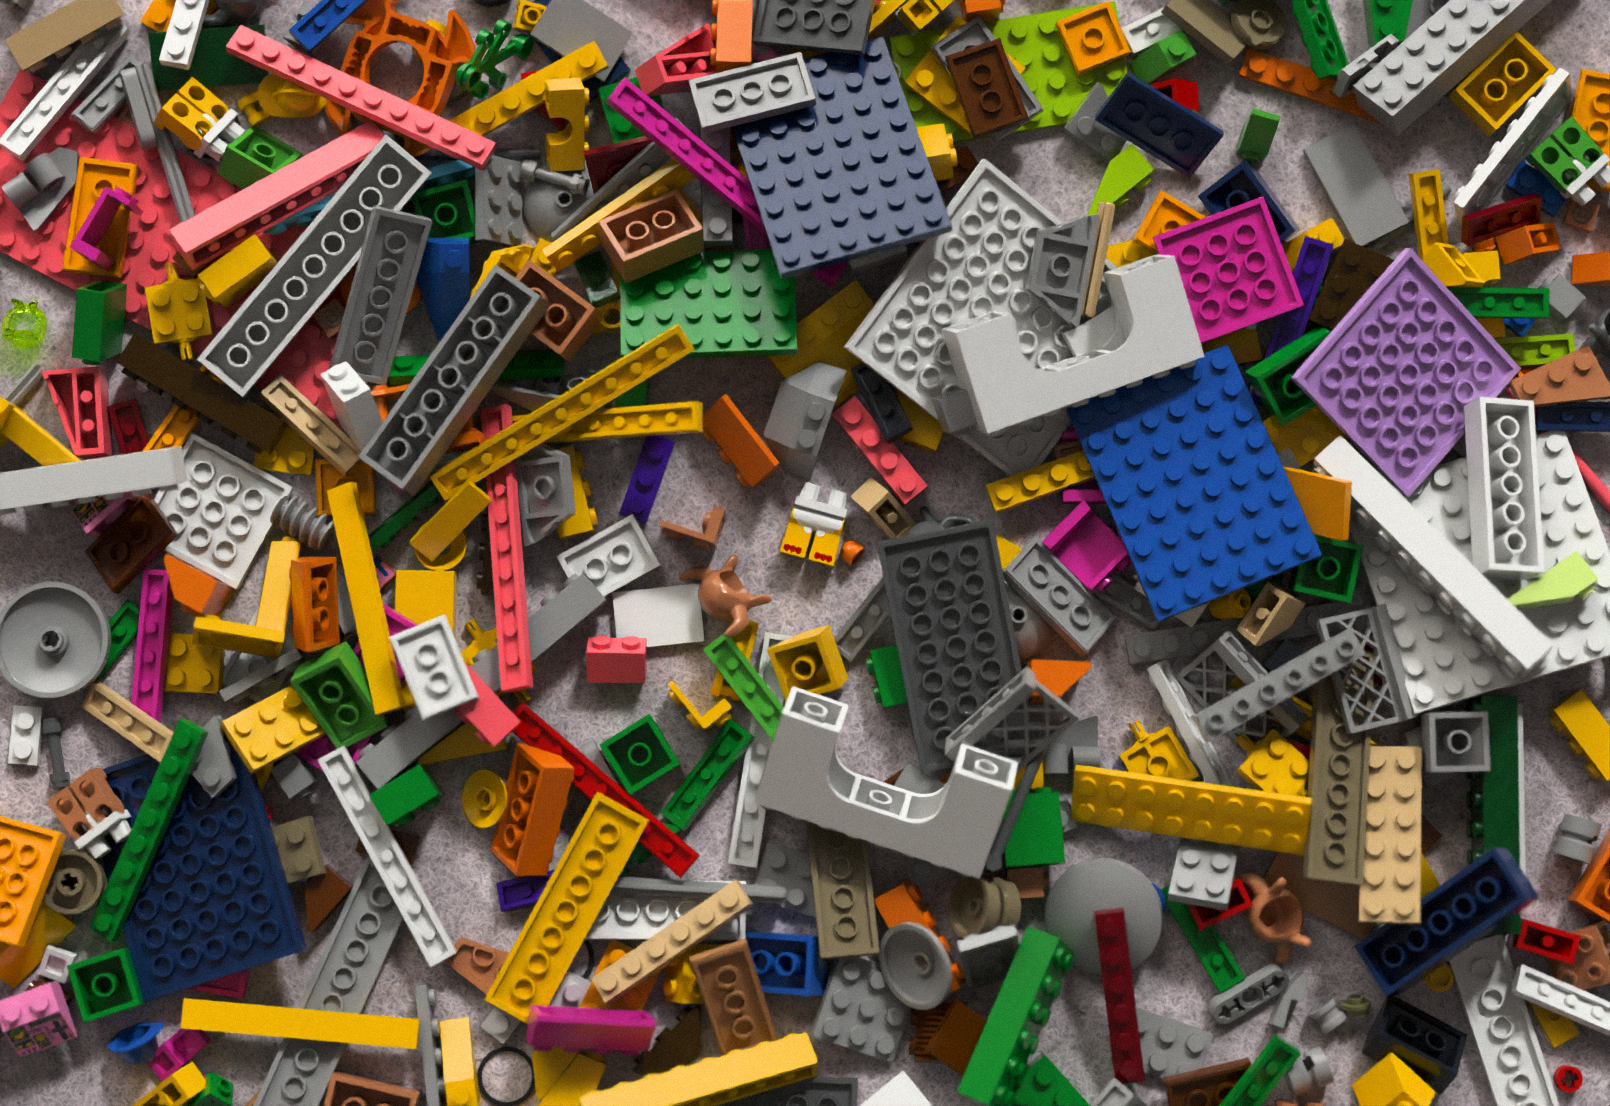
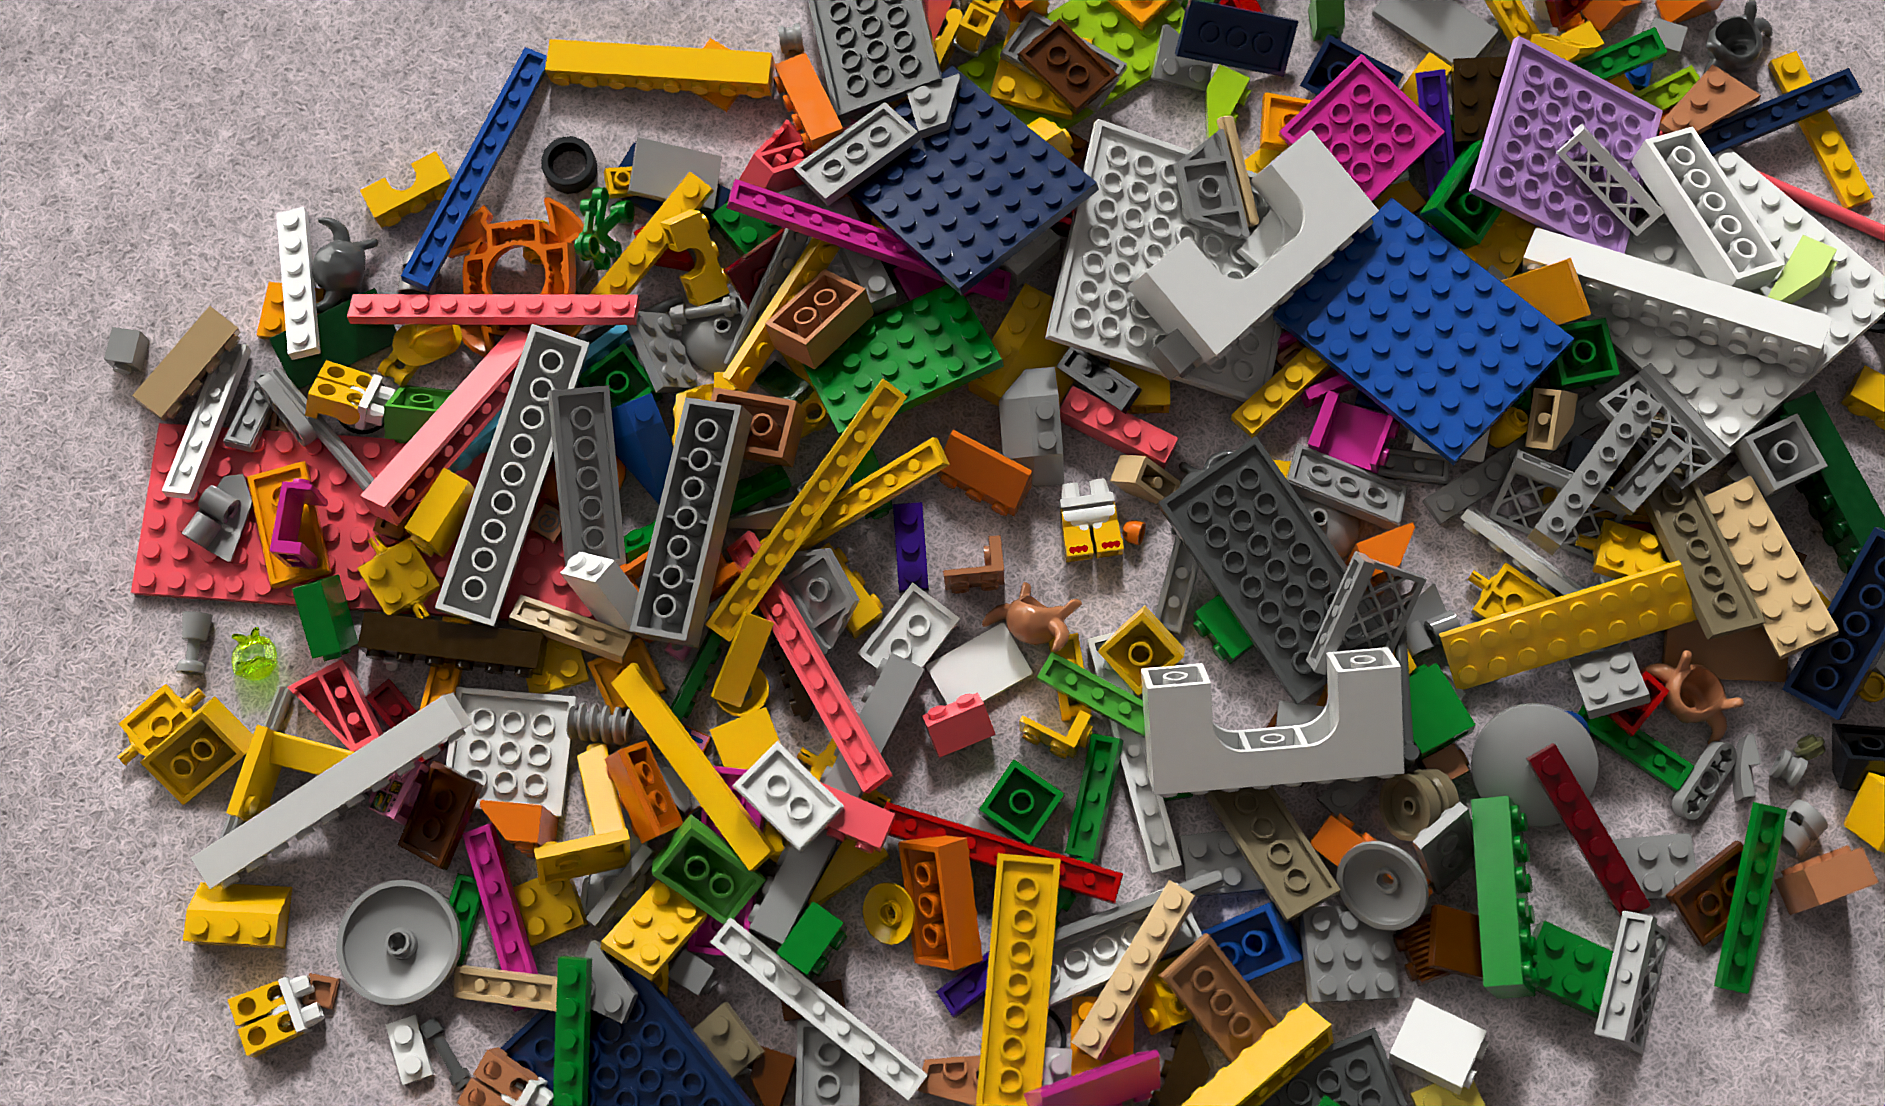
camera: 20 degrees left, 10 degrees down
(845, 74) = (934, 105): none -> light grey wing
(1327, 707) = (1649, 472): none -> light grey plate
(1441, 412) = (1613, 168): none -> white fence

